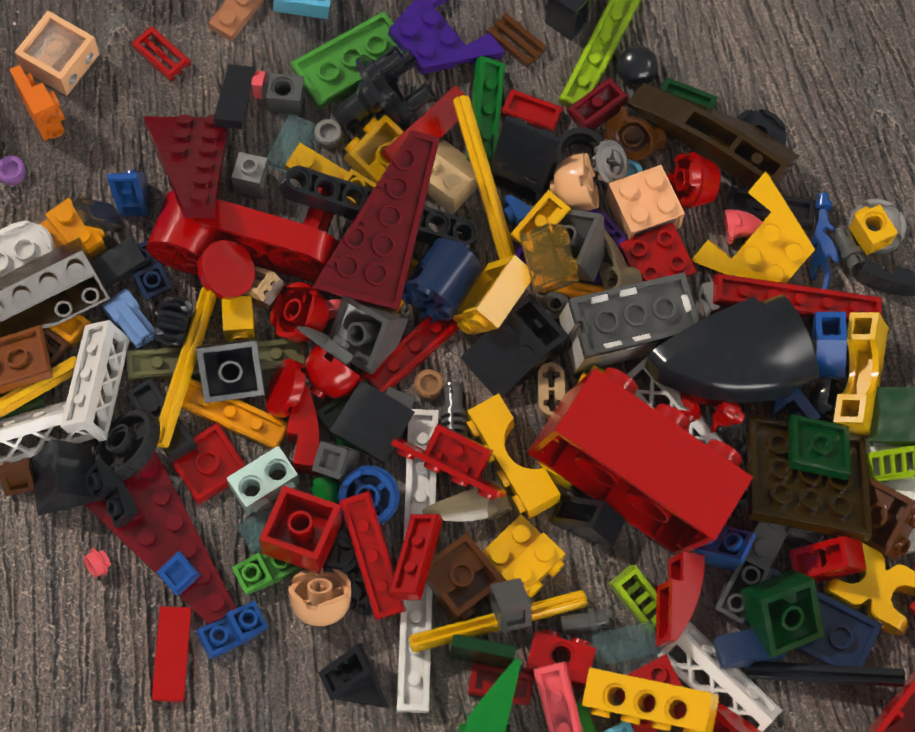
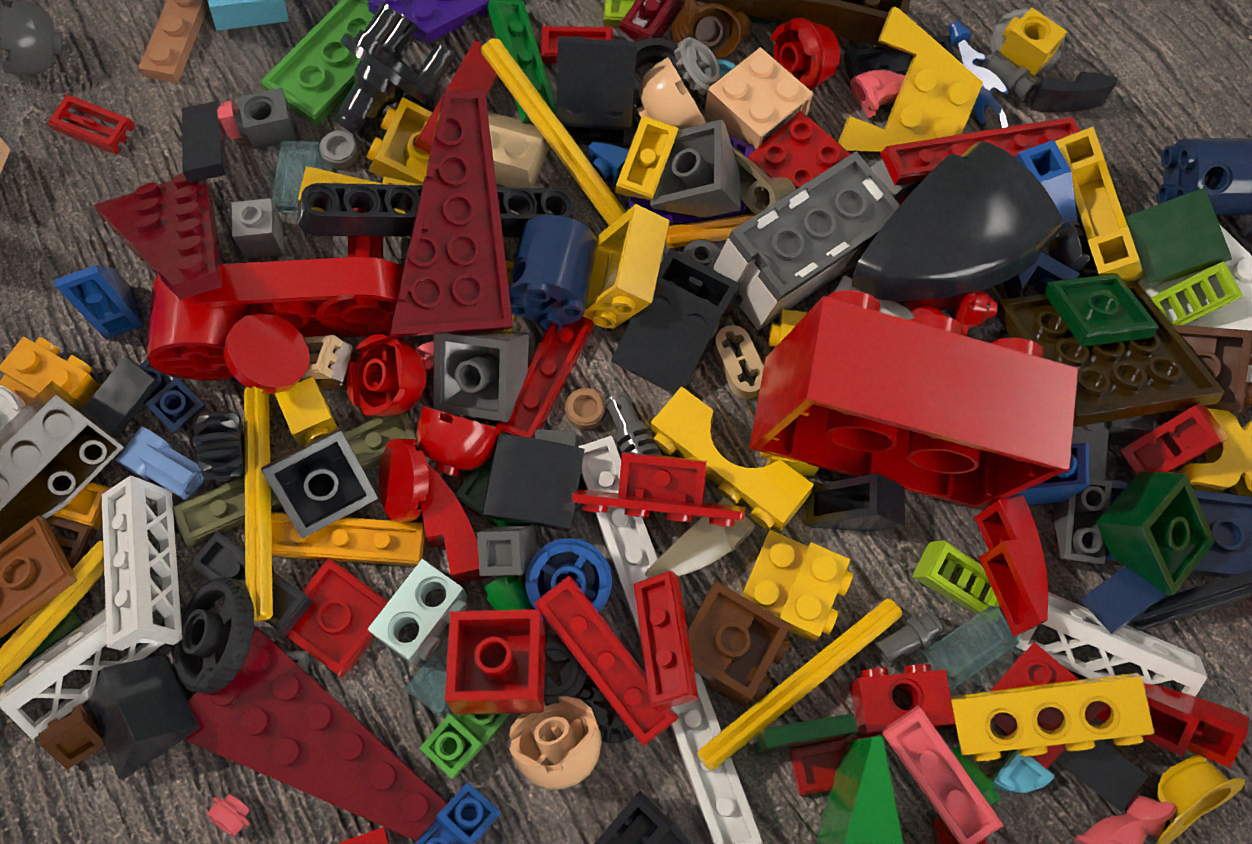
camera: 20 degrees left, 0 degrees up
(98, 214) = (70, 344): clear smoke tile -> none
(108, 487) = (204, 704): black slope -> none
(178, 573) = (349, 787): blue tile -> none
(335, 346) = (449, 401): dark grey plate -> none
(511, 605) = (816, 656): dark grey brick -> none
(549, 258) = (680, 193): clear yellow brick -> none

